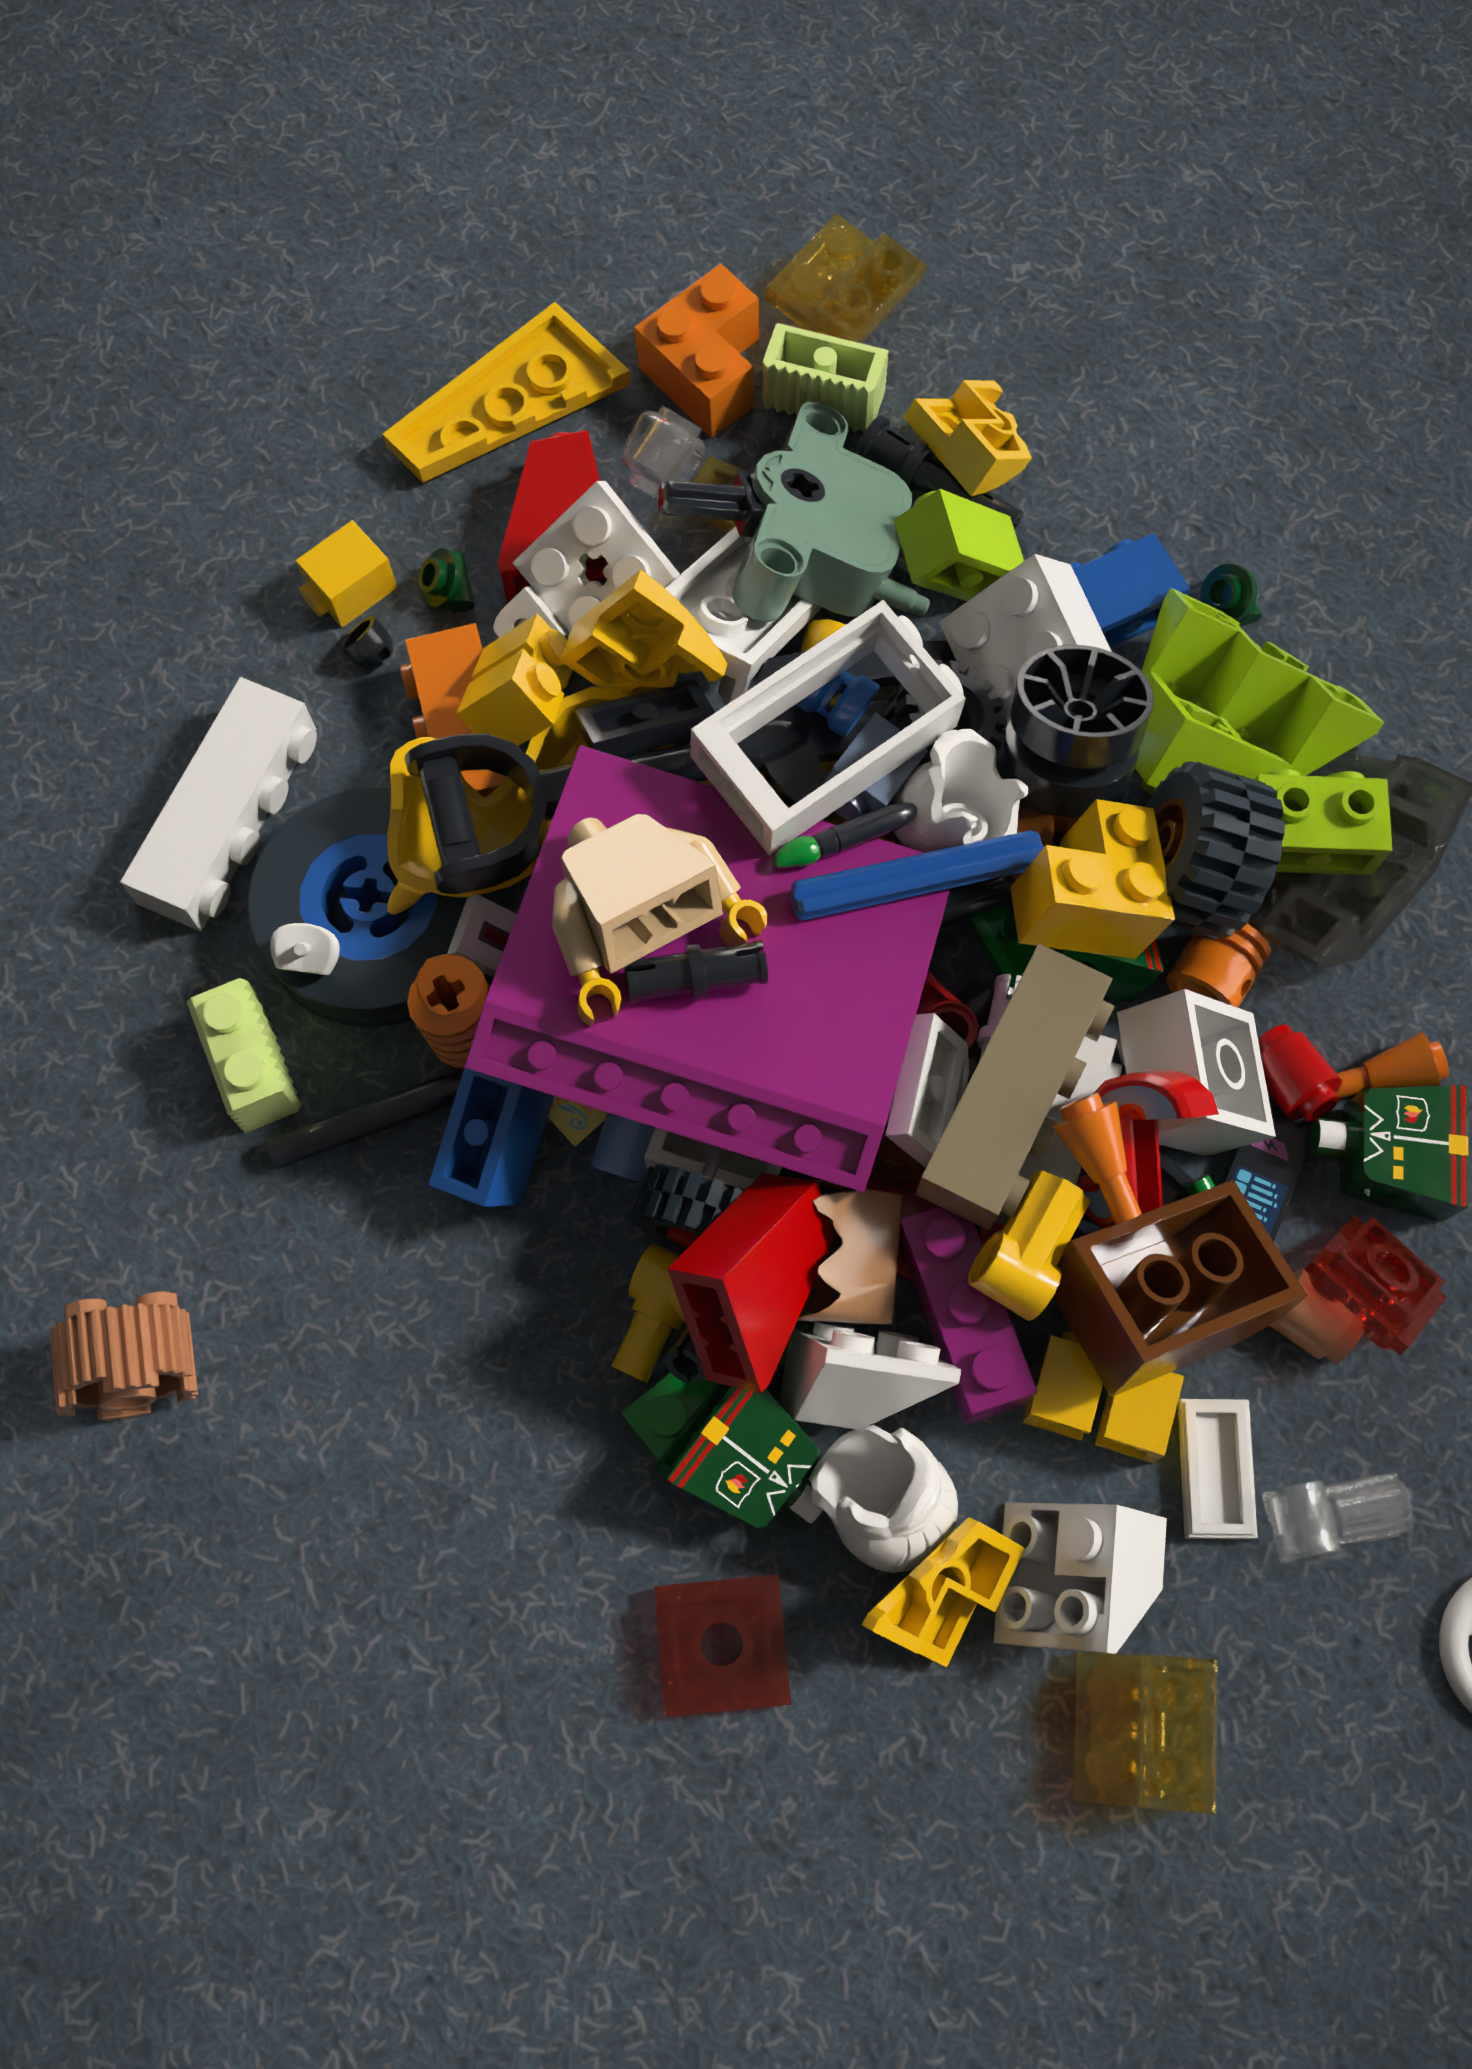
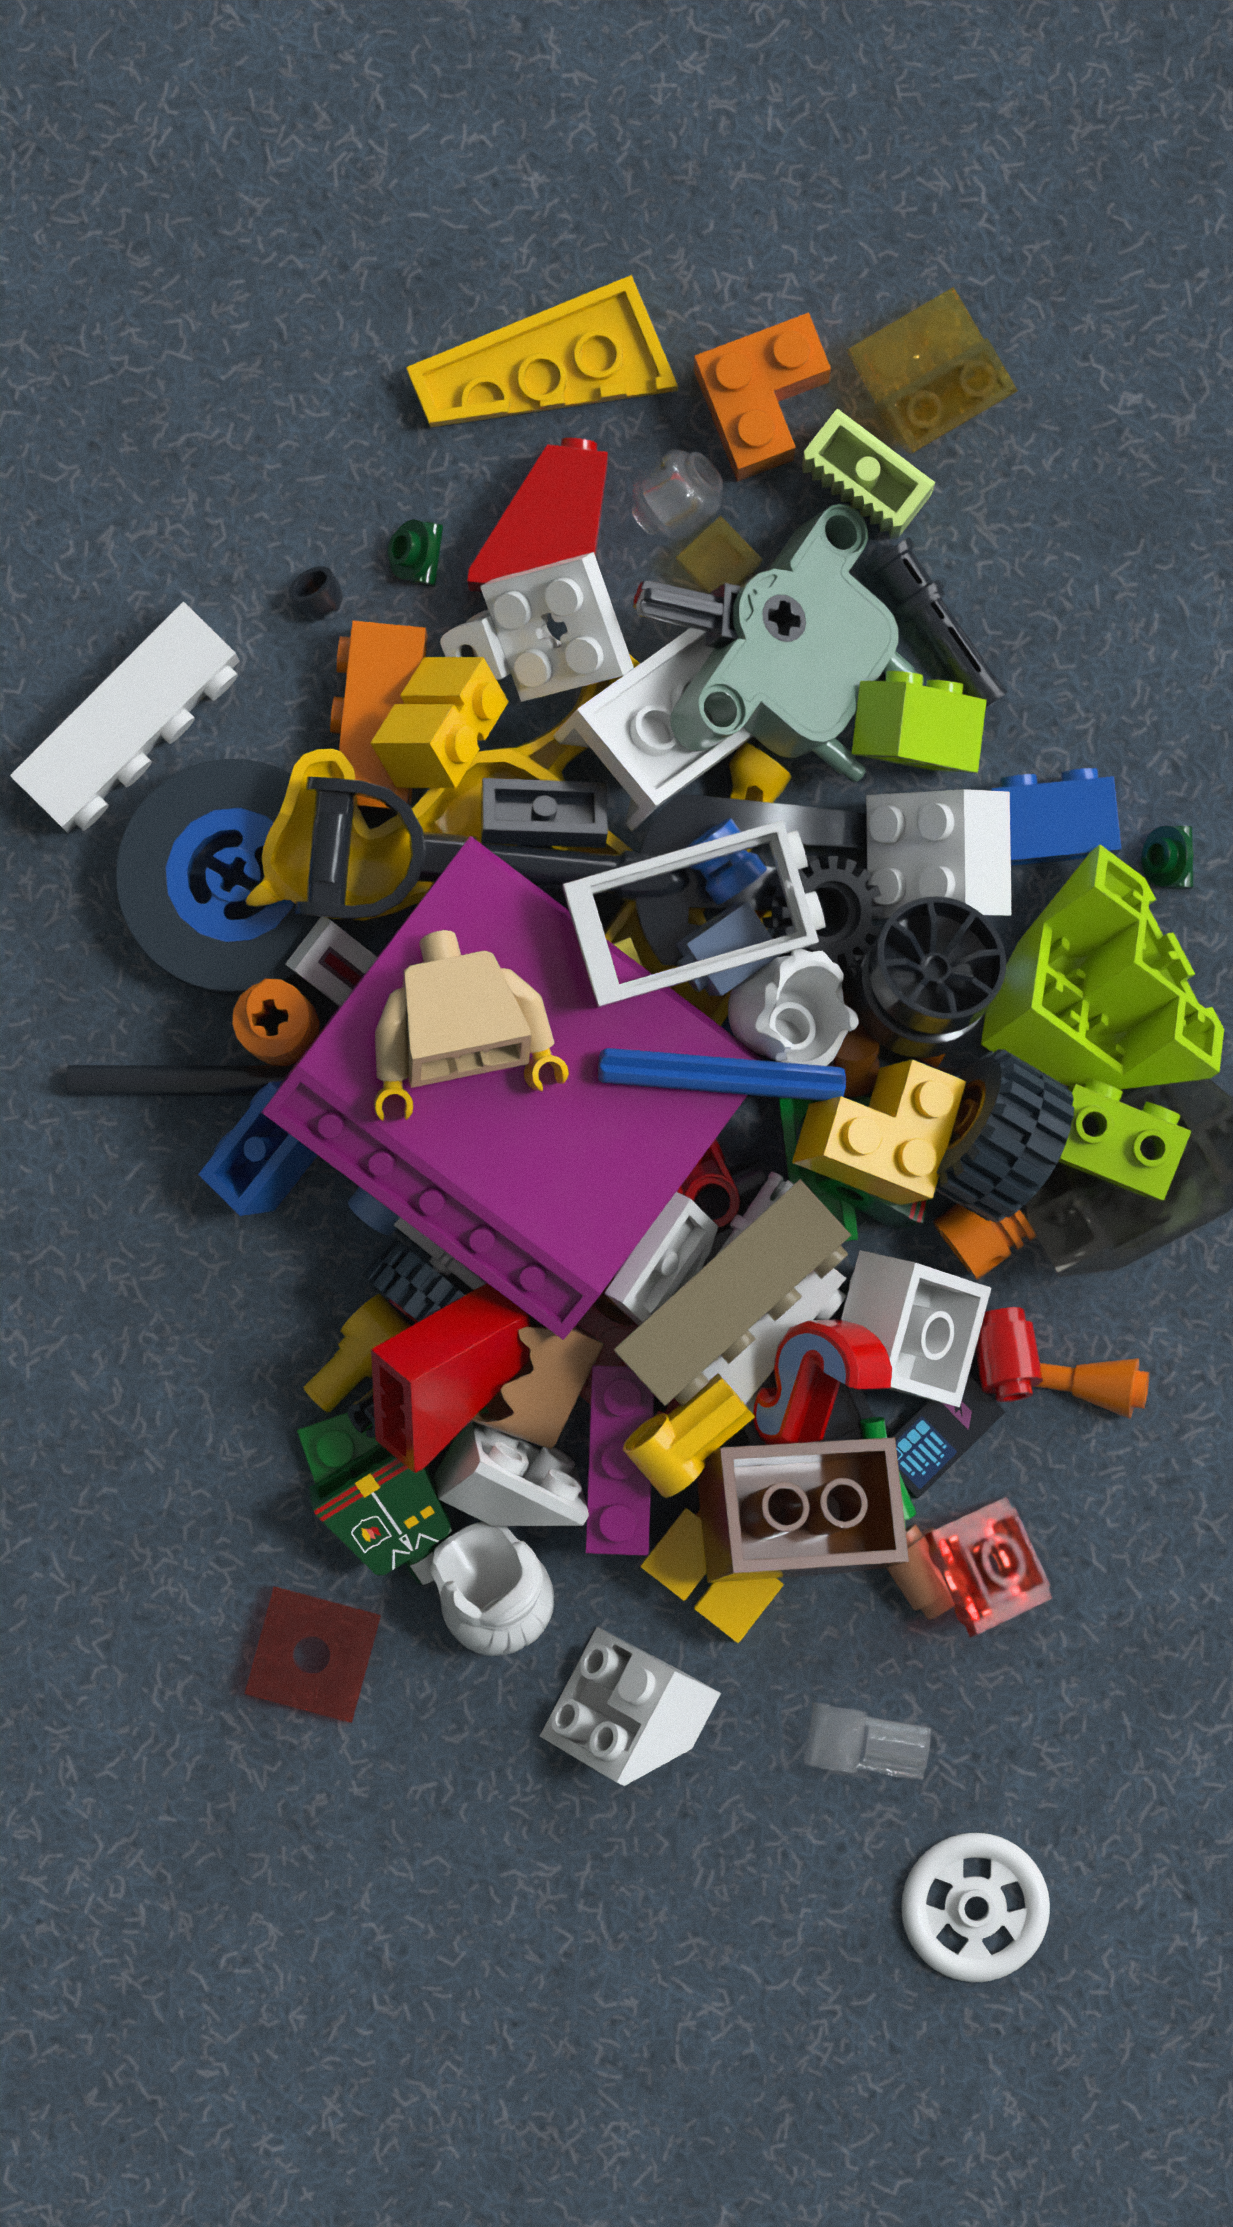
camera: 20 degrees right, 15 degrees up
(244, 1055) = (71, 982): yellowish green brick -> none
(304, 948) = (160, 914): white piece -> none
(345, 575) = (318, 514): yellow brick -> none
(640, 640) = (563, 735): yellow slope -> none
(696, 971) = (488, 1105): black pin -> none
(807, 850) = (672, 1014): black piece -> none
(939, 1596) = (507, 1685): yellow slope -> none
(971, 435) = (989, 591): yellow slope -> none
(1096, 1141) = (775, 1370): orange cone -> none
(1146, 1731) = (630, 1853): clear yellow brick -> none
(1217, 1469) = (787, 1667): white tile -> none
(1401, 1148) = (1068, 1455): dark green torso -> none

